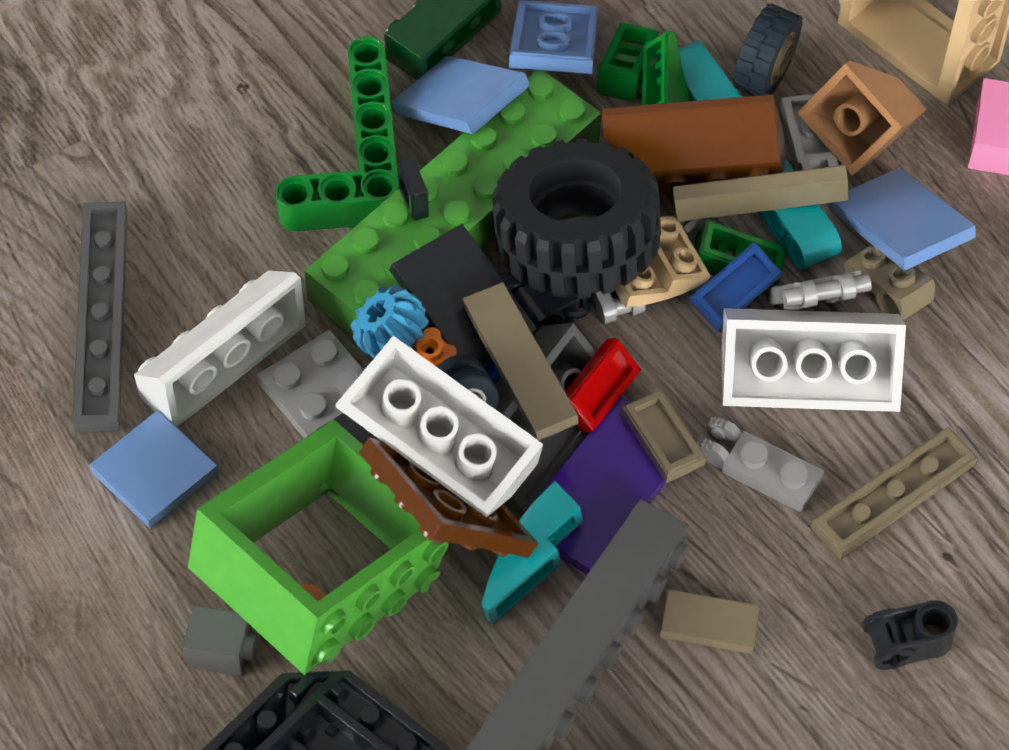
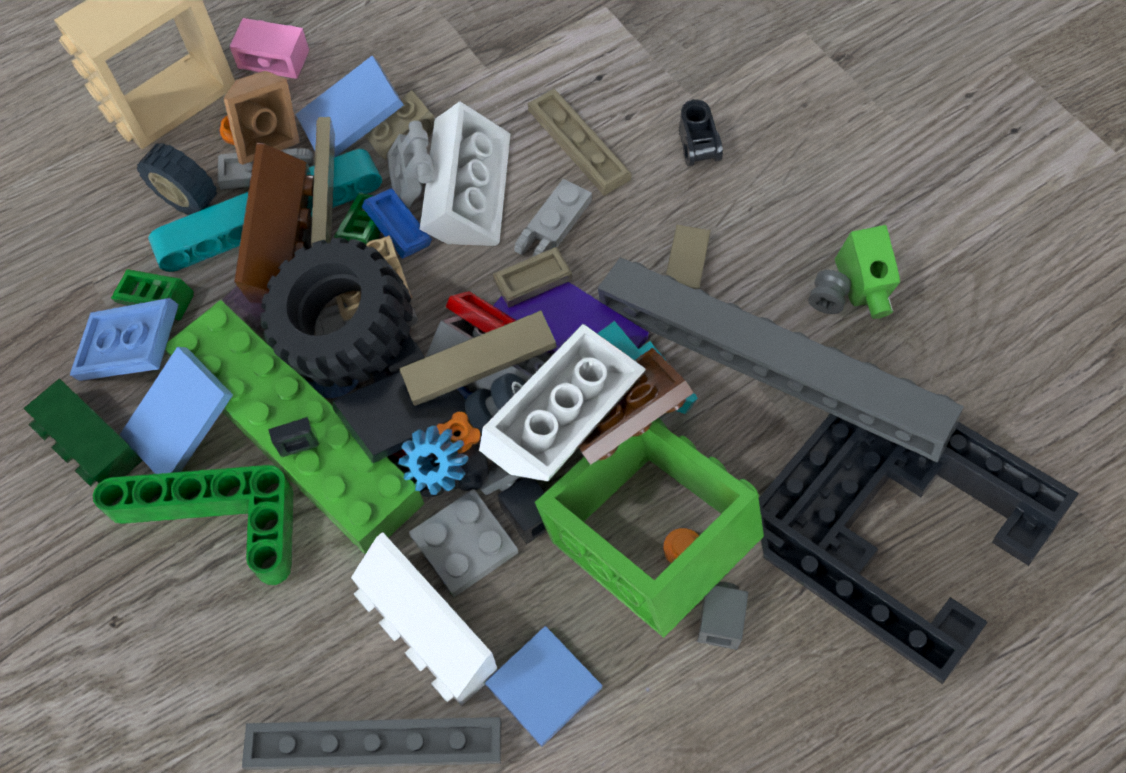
camera: 85 degrees left, 5 degrees up
(663, 78) = (189, 247): green slope -> none

